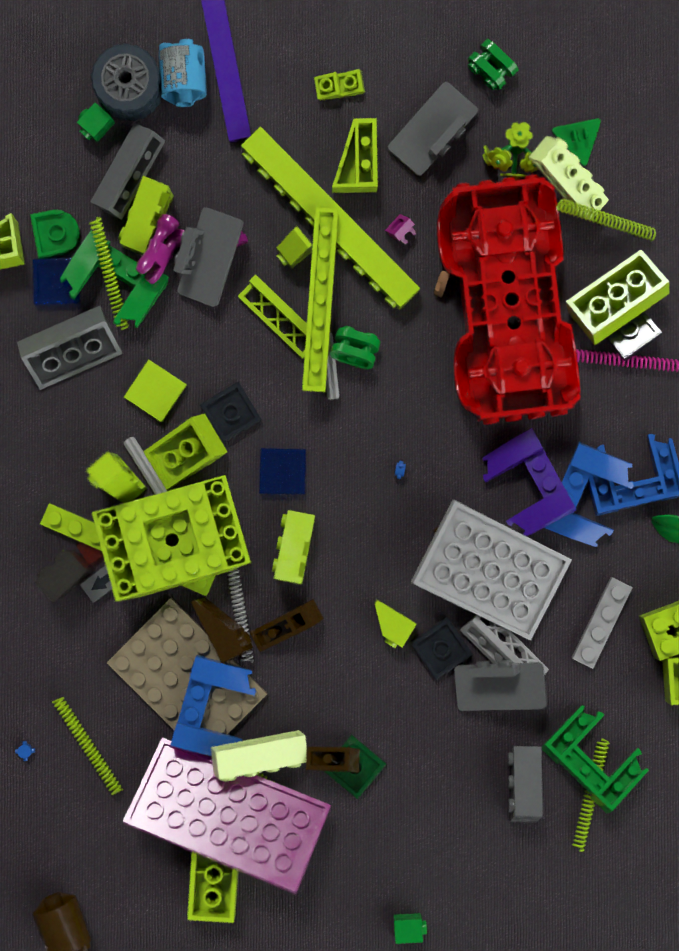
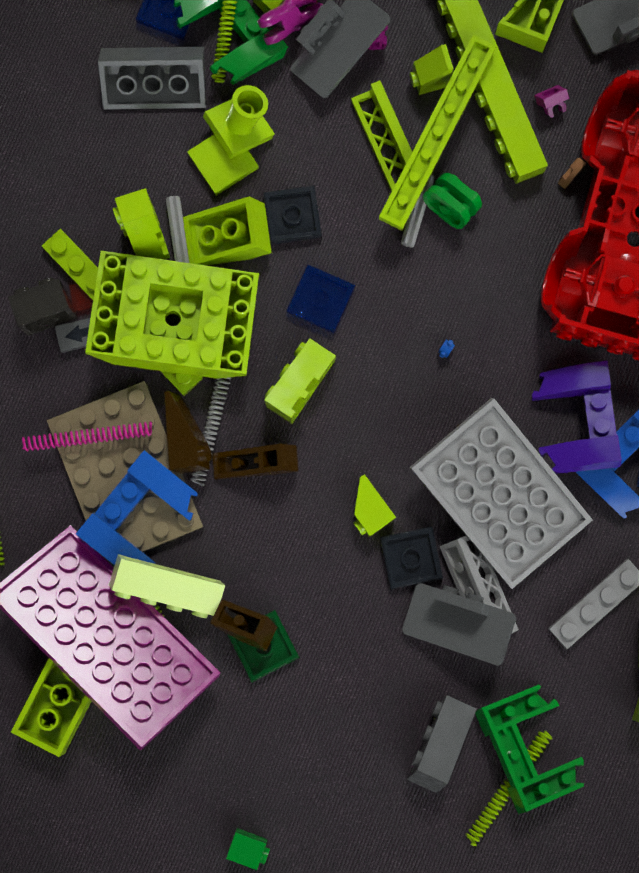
camera: 25 degrees right, 5 degrees down
(145, 663) = (98, 438): none -> dark pink piece
(156, 356) = (240, 121): none -> lime plant

